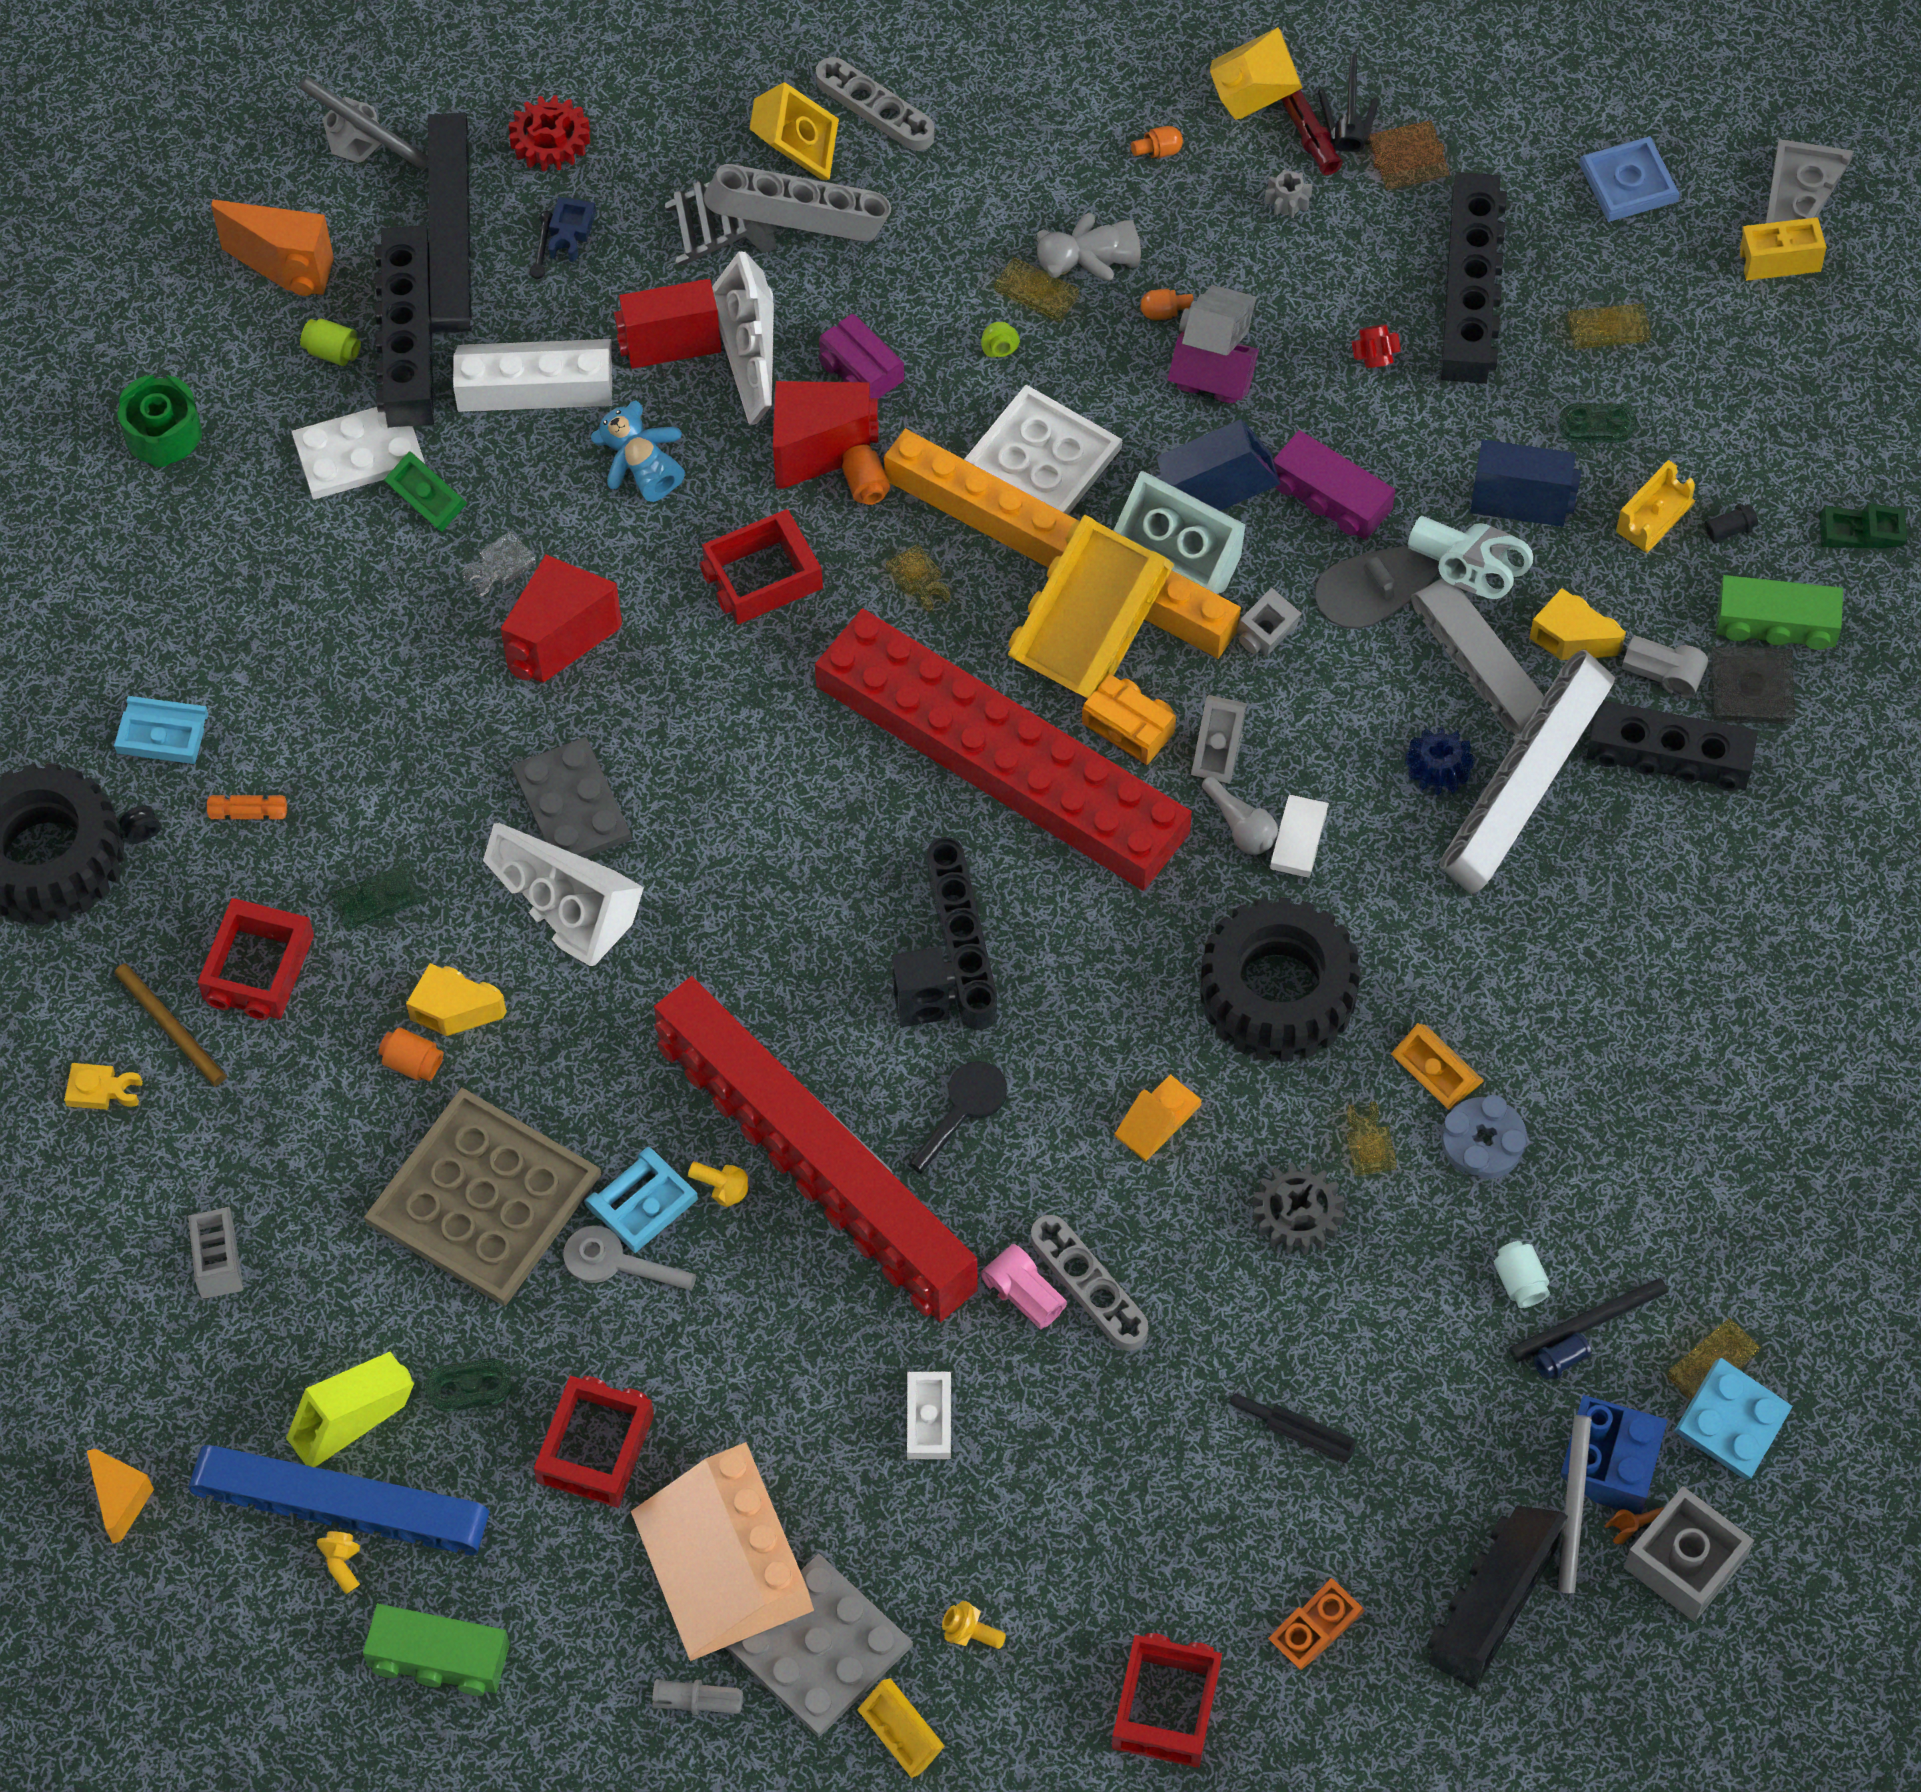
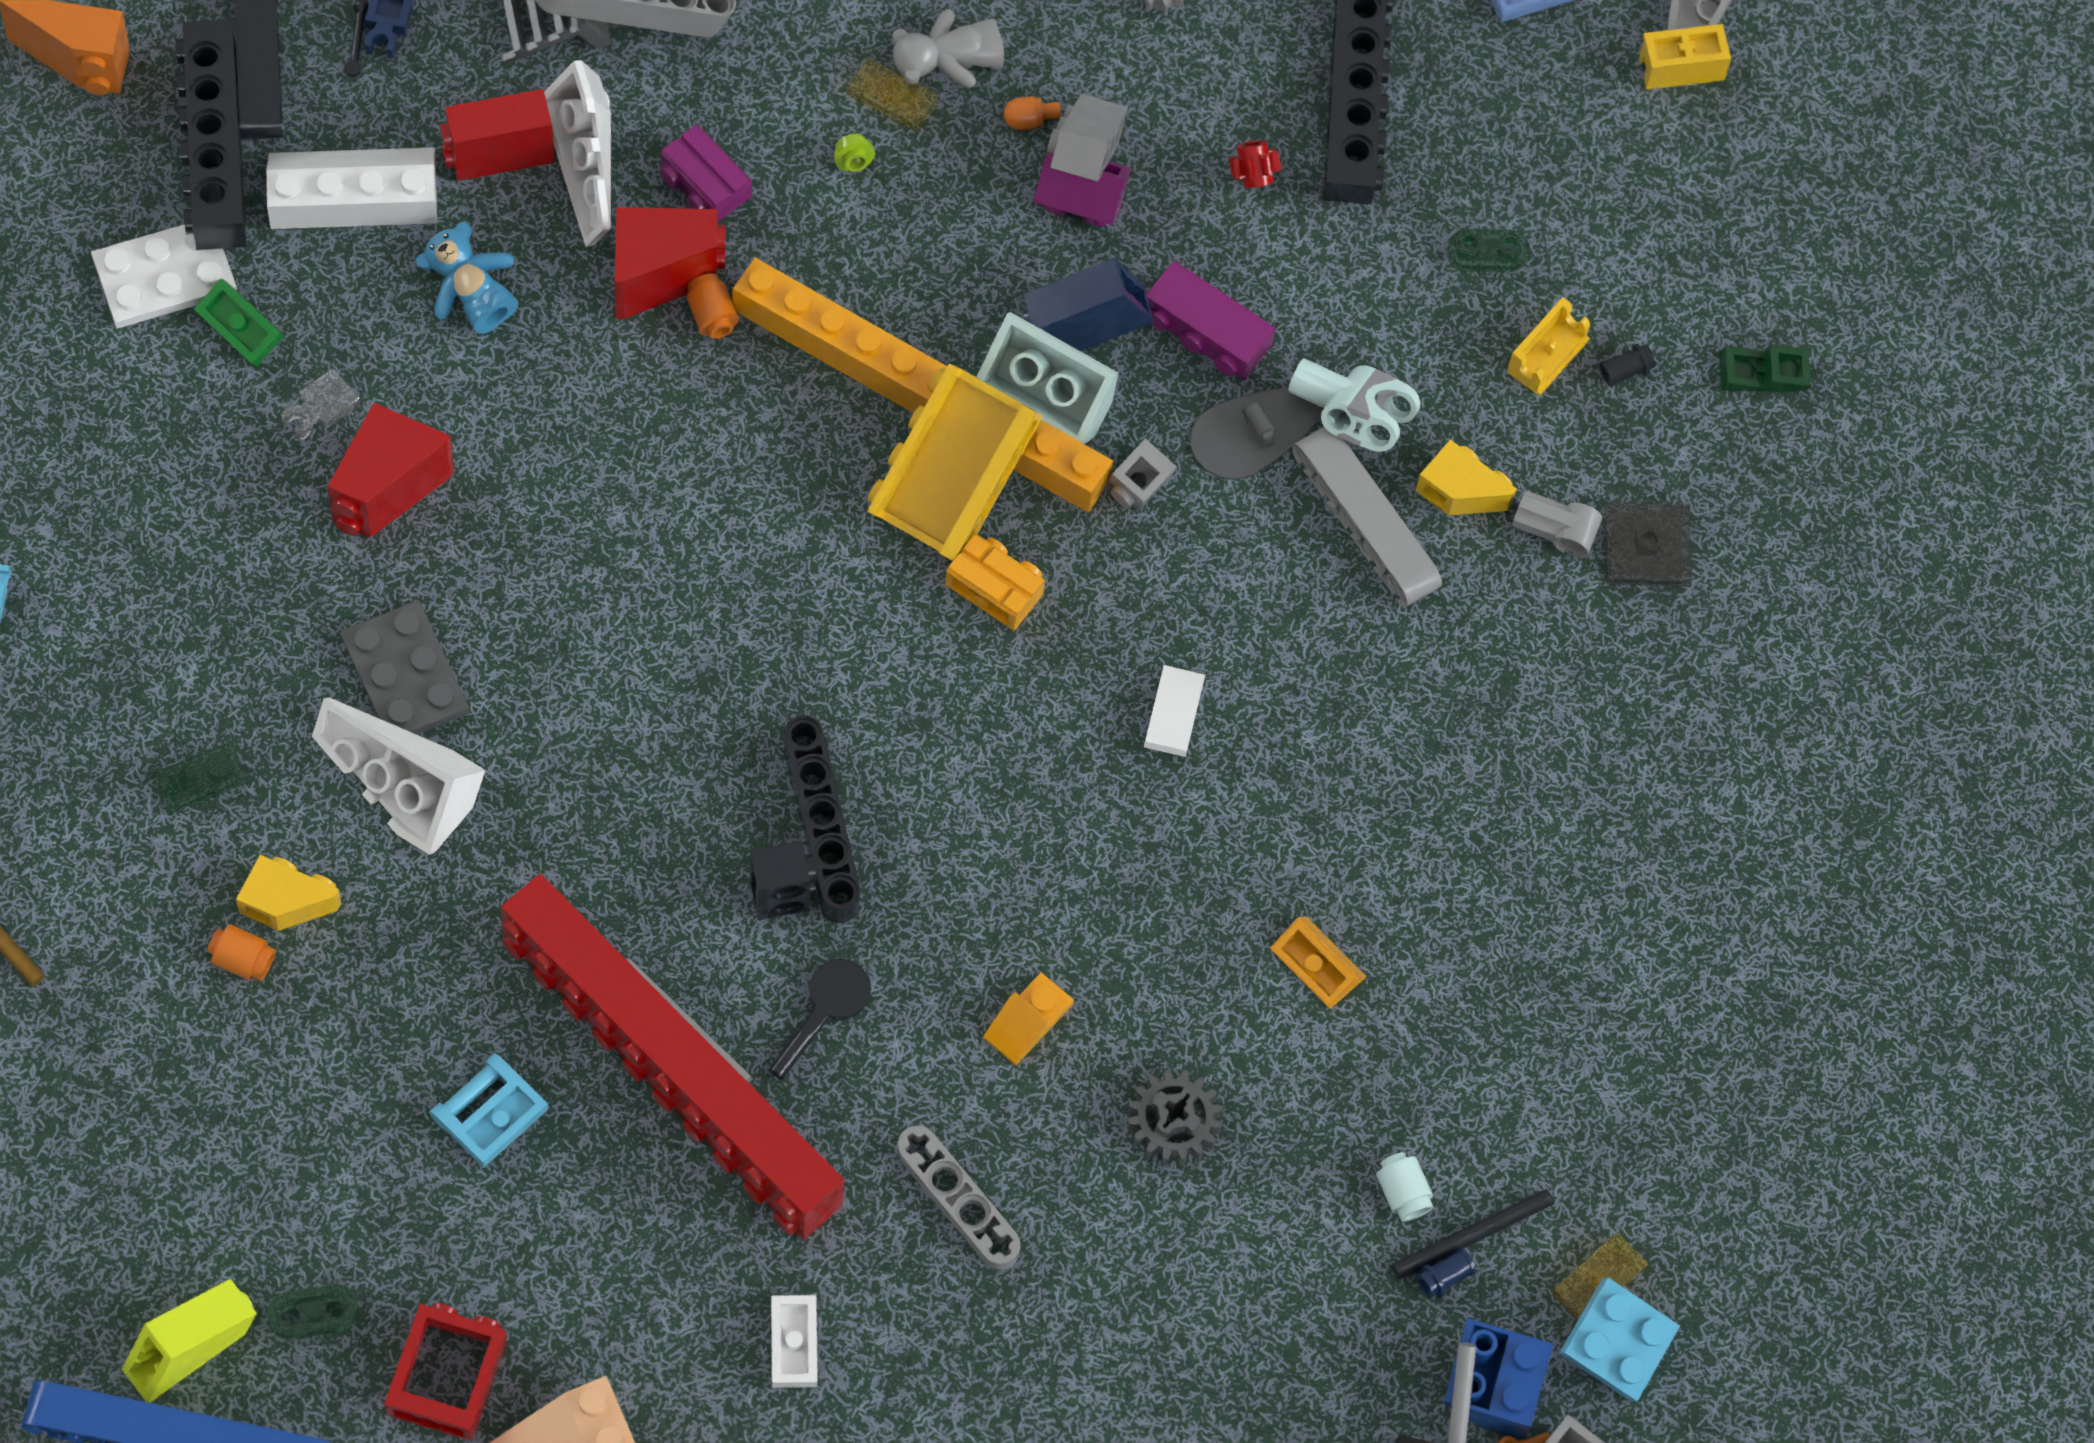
camera: 10 degrees left, 5 degrees up
(222, 1276) = (48, 1195): light grey slope -> none
(247, 807) = (56, 677): orange axle -> none
(266, 923) = (82, 808): red window -> none
(330, 341) = (130, 149): lime brick -> none
(483, 1196) = (322, 1107): dark tan plate -> none
(597, 1254) = (443, 1170): light grey piece -> none
(729, 1184) = (581, 1094): yellow plate -> none
(750, 539) = (588, 379): red window -> none
(917, 572) = (768, 416): clear yellow plate -> none
(1003, 749) = (862, 615): red brick -> none
(1017, 1279) = (884, 1195): bright pink piece -> none
(1045, 450) = (902, 280): white plate -> none
(1219, 738) = (1090, 605): light grey slope -> none
(1251, 828) = (1125, 703): light grey piece -> none
(1272, 1025) = (1146, 921): black tyre -> none
(1300, 1428) = (1176, 1352): black axle -> none
(1369, 1146) = (1248, 1049): clear yellow plate -> none
(1450, 772) = (1337, 633): clear blue gear -> none
(1477, 1158) = (1359, 1061): sand blue plate -> none
(1525, 483) = (1412, 322): dark blue brick -> none
(1526, 772) = (1412, 643): beam -> none
(1608, 326) = (1500, 141): clear yellow plate -> none
(1688, 735) = (1582, 601): black brick -> none
(1779, 612) = (1676, 465): bright green brick -> none

